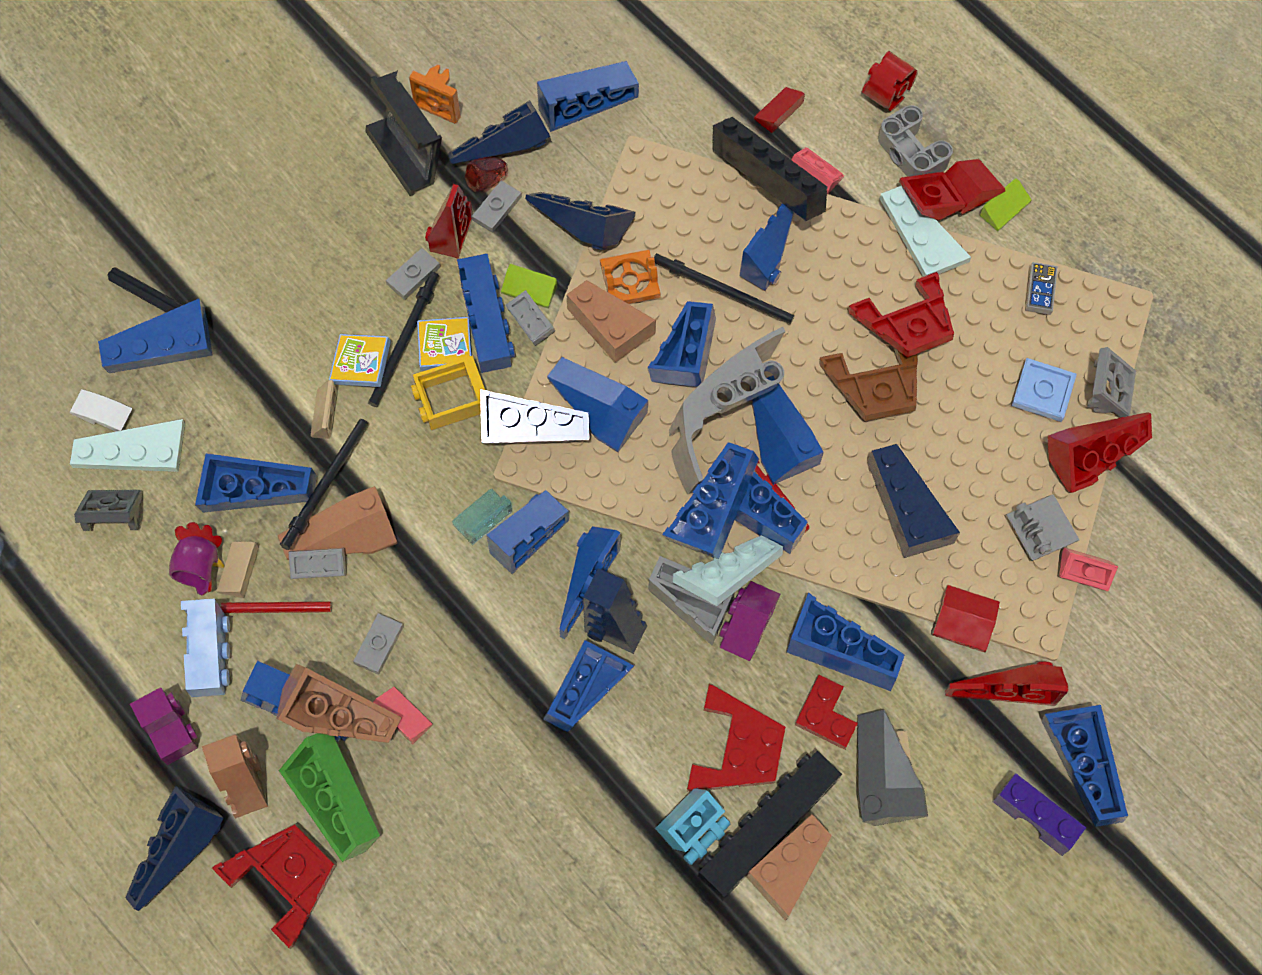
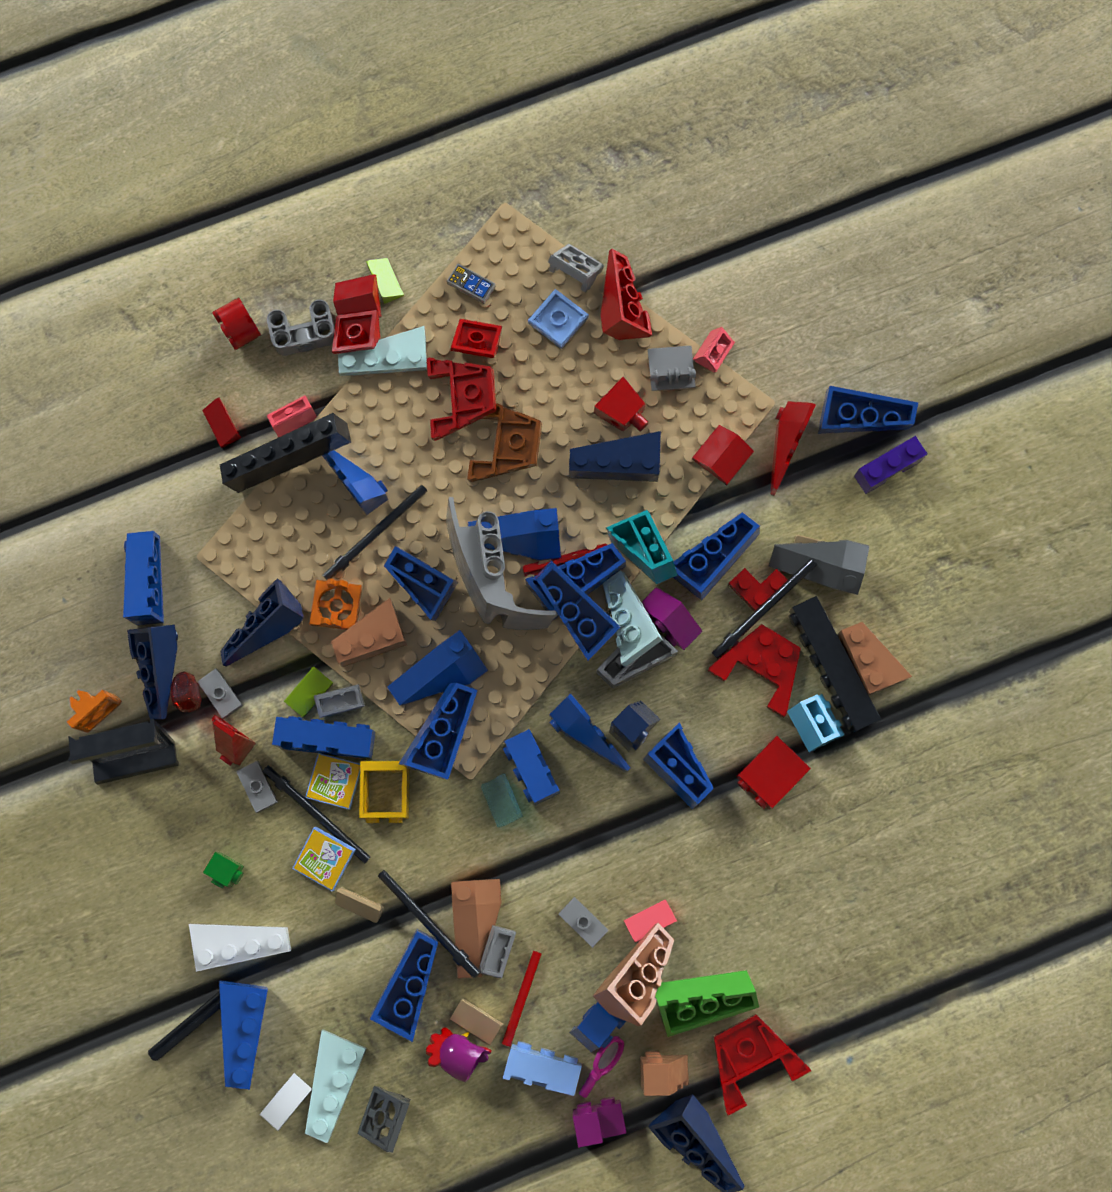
camera: 65 degrees left, 10 degrees up
(232, 714) = (603, 1063): none -> dark pink piece
(245, 308) = (230, 944): none -> white wing
(316, 270) = (223, 870): none -> green brick
(615, 793) = (772, 773): none -> red panel
(754, 699) = (731, 639): none -> black bar
(821, 559) = (643, 545): none -> teal wedge
(971, 487) = (622, 407): none -> red torso
(981, 313) = (476, 338): none -> red slope

